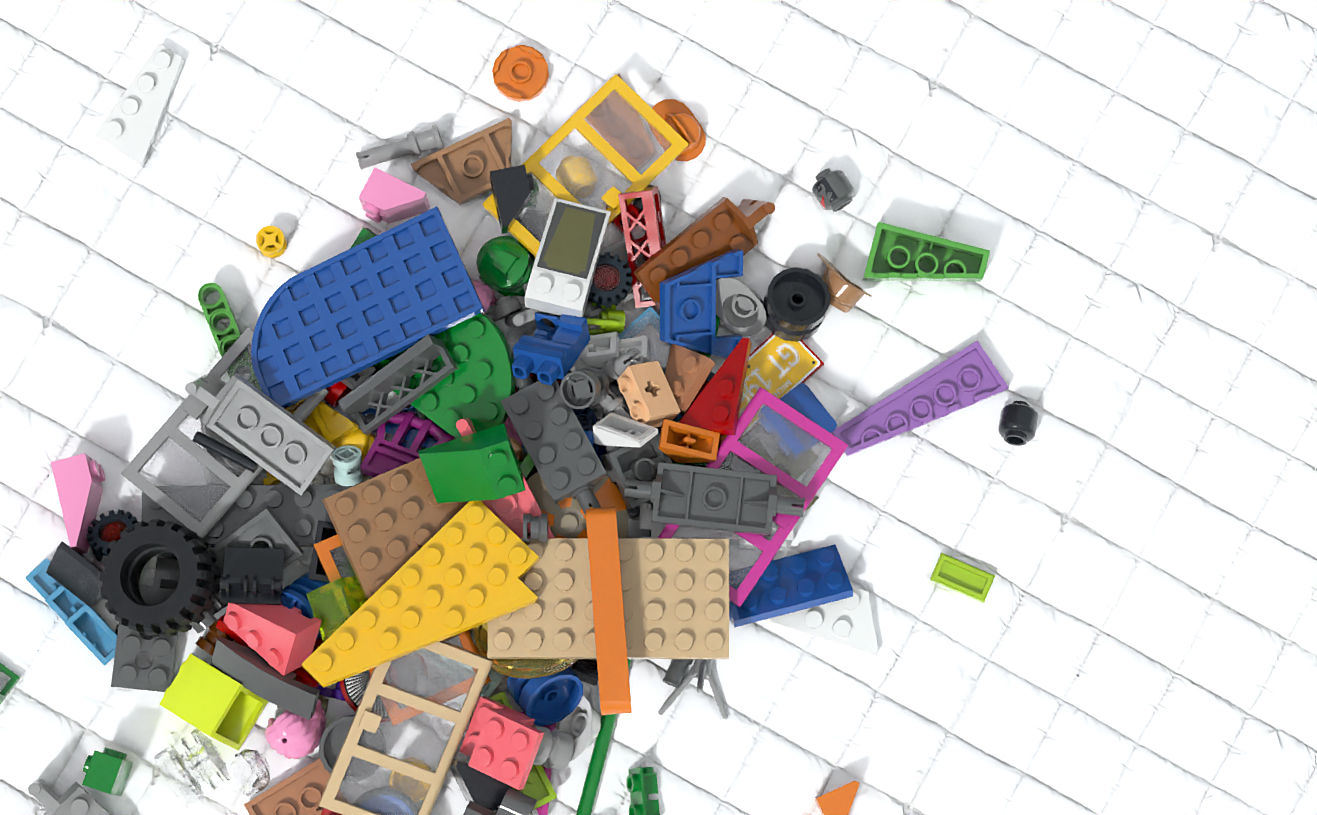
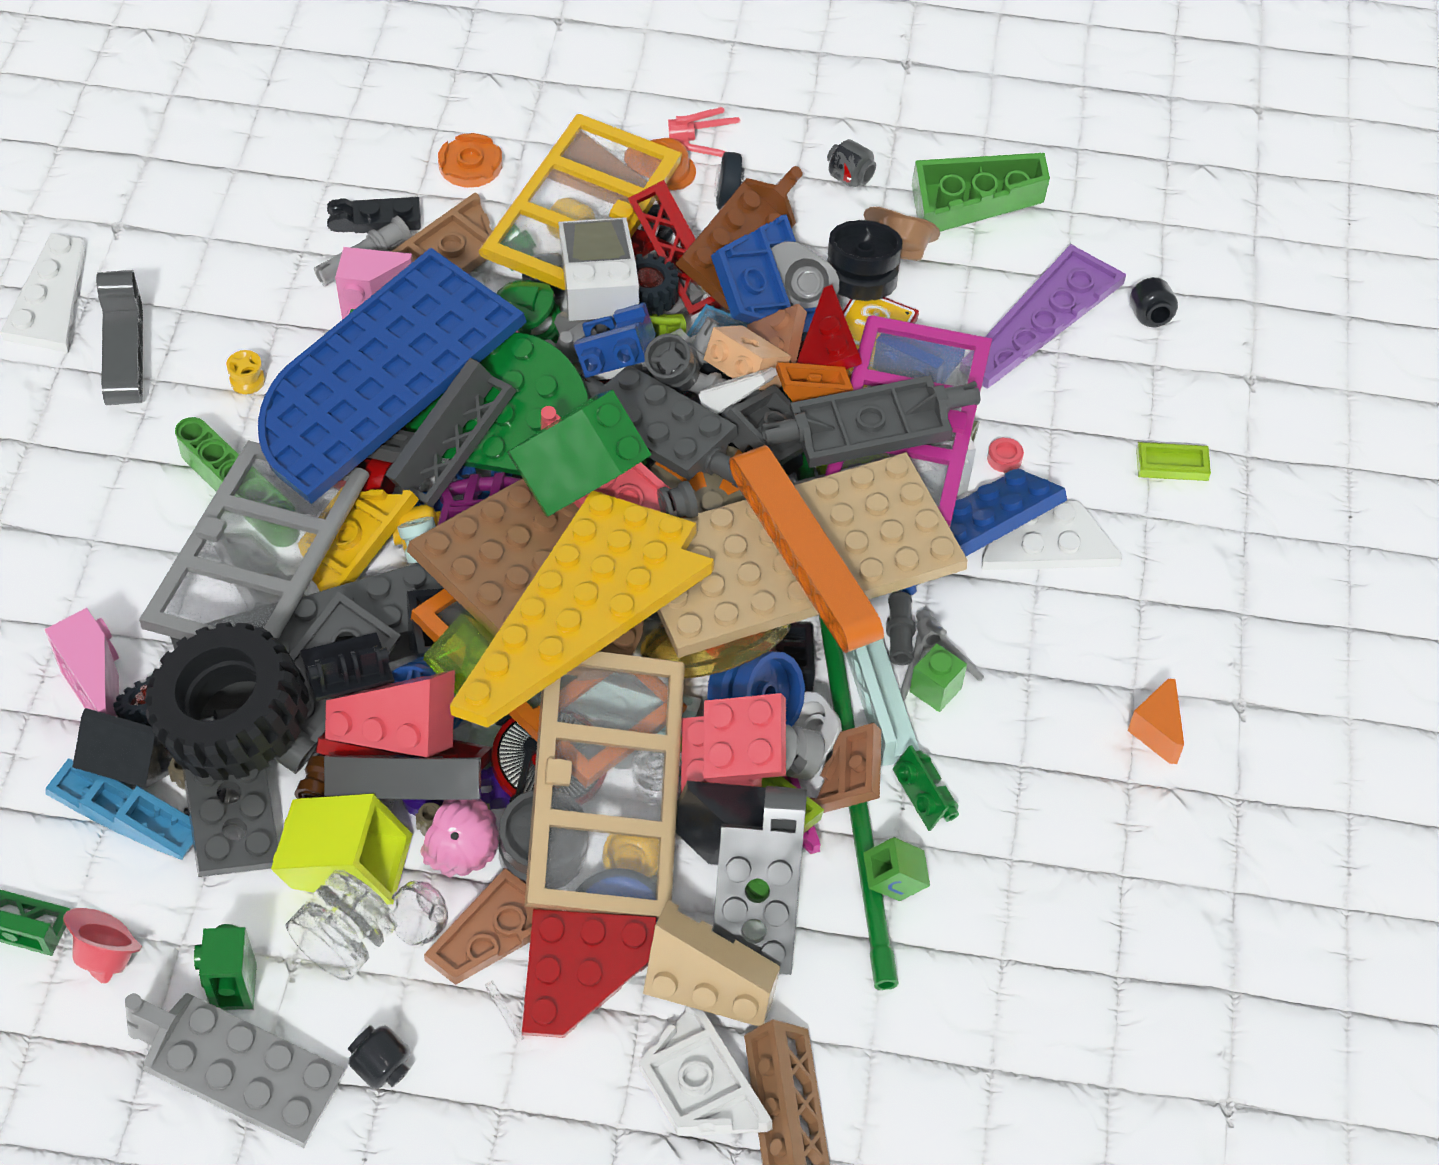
camera: 20 degrees left, 25 degrees down
(31, 713) = (100, 942): none -> coral piece
(184, 182) = (121, 337): none -> dark grey beam
(225, 451) = (265, 556): black piece -> none
(262, 430) = (306, 513): light grey hinge -> none
(346, 709) = (529, 749): none -> black hinge
(425, 109) = (371, 214): none -> black hinge
(511, 193) = (507, 223): black slope -> none
(590, 771) = (852, 770): none -> nougat wing
(644, 705) = (882, 699): none -> light aqua fence
(688, 713) = (938, 677): none -> bright green brick
(708, 102) = (684, 129): none -> coral plant
(720, 180) = (728, 177): none -> black wheel
(832, 525) = (1005, 454): none -> coral tile

